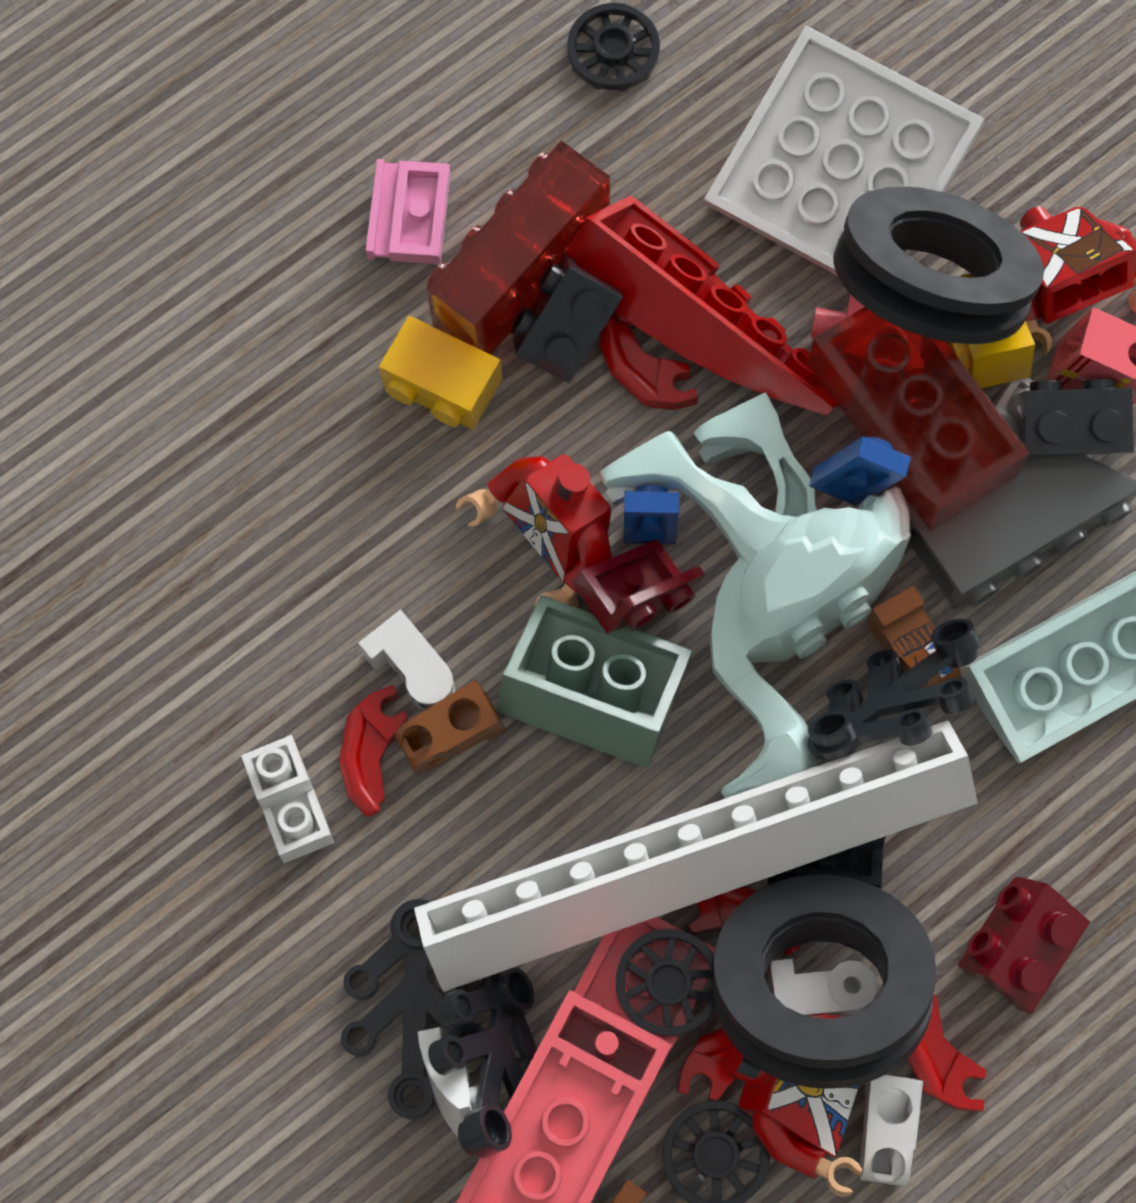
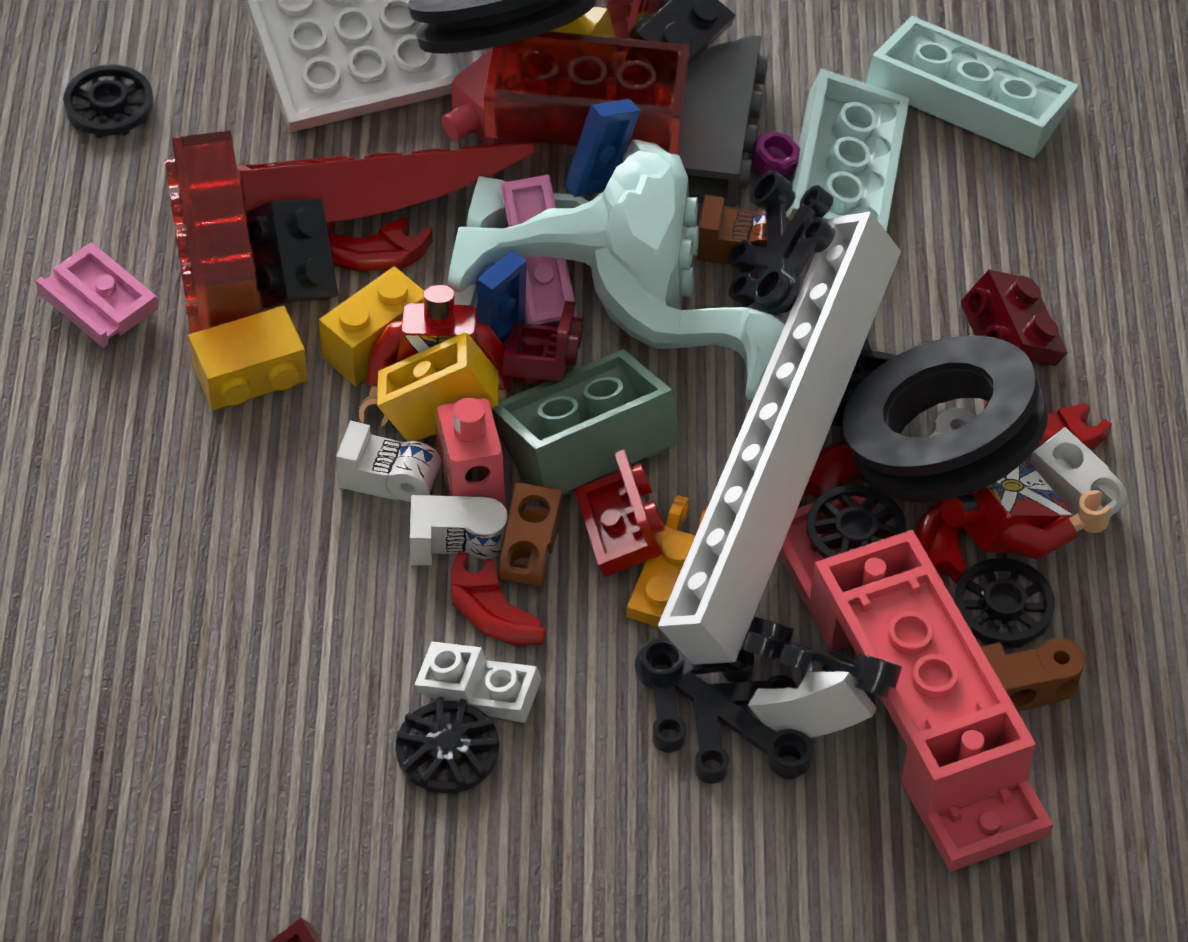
camera: 55 degrees left, 20 degrees down
(212, 823) = (447, 746): none -> black wheel
(427, 561) = (385, 465): none -> white leg
(480, 621) = (470, 439): none -> coral torso
(517, 544) = (434, 377): none -> yellow brick
(518, 850) = (662, 572): none -> light orange hinge
(523, 784) = (618, 518): none -> red bracket
(550, 431) = (358, 322): none -> yellow brick
(760, 467) = (546, 277): none -> bright pink tile
(1031, 600) = (776, 153): none -> magenta tile

